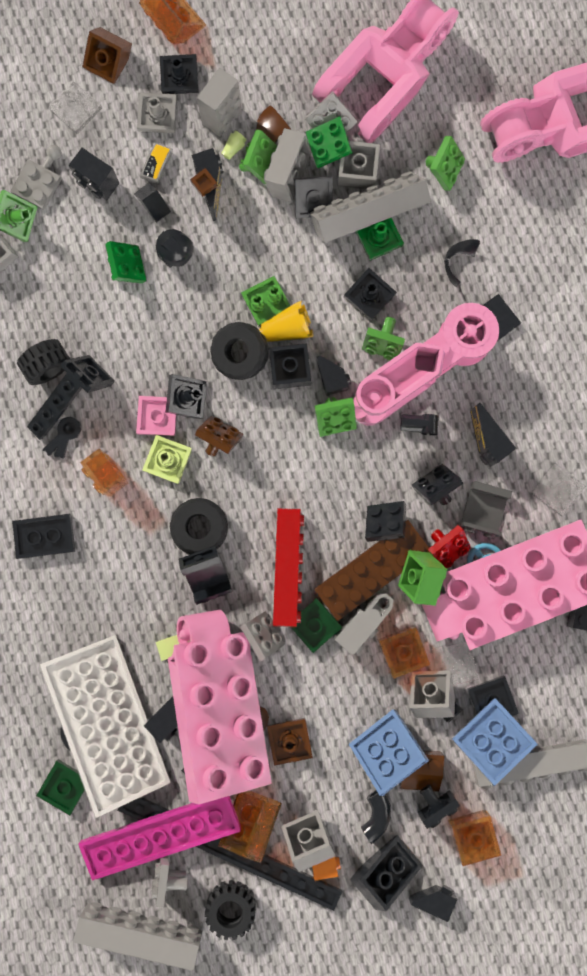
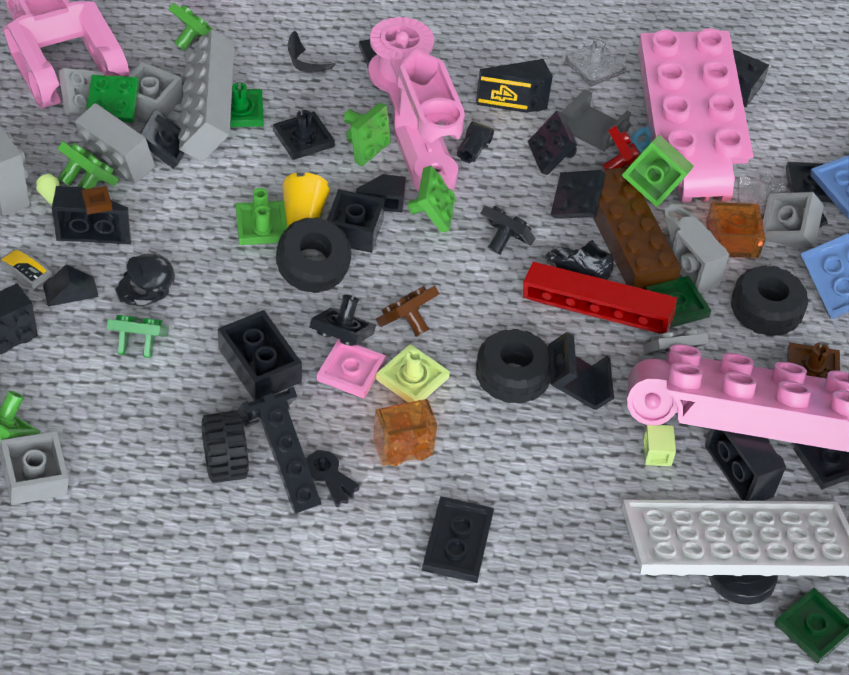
camera: 75 degrees left, 35 degrees down
(136, 351) = (259, 355): none -> black brick
(271, 123) = (46, 154): reddish brown brick -> none
(321, 542) = (586, 260): none -> black piece
(329, 478) = (506, 227): none -> black plate
(350, 711) = (769, 300): none -> black tyre

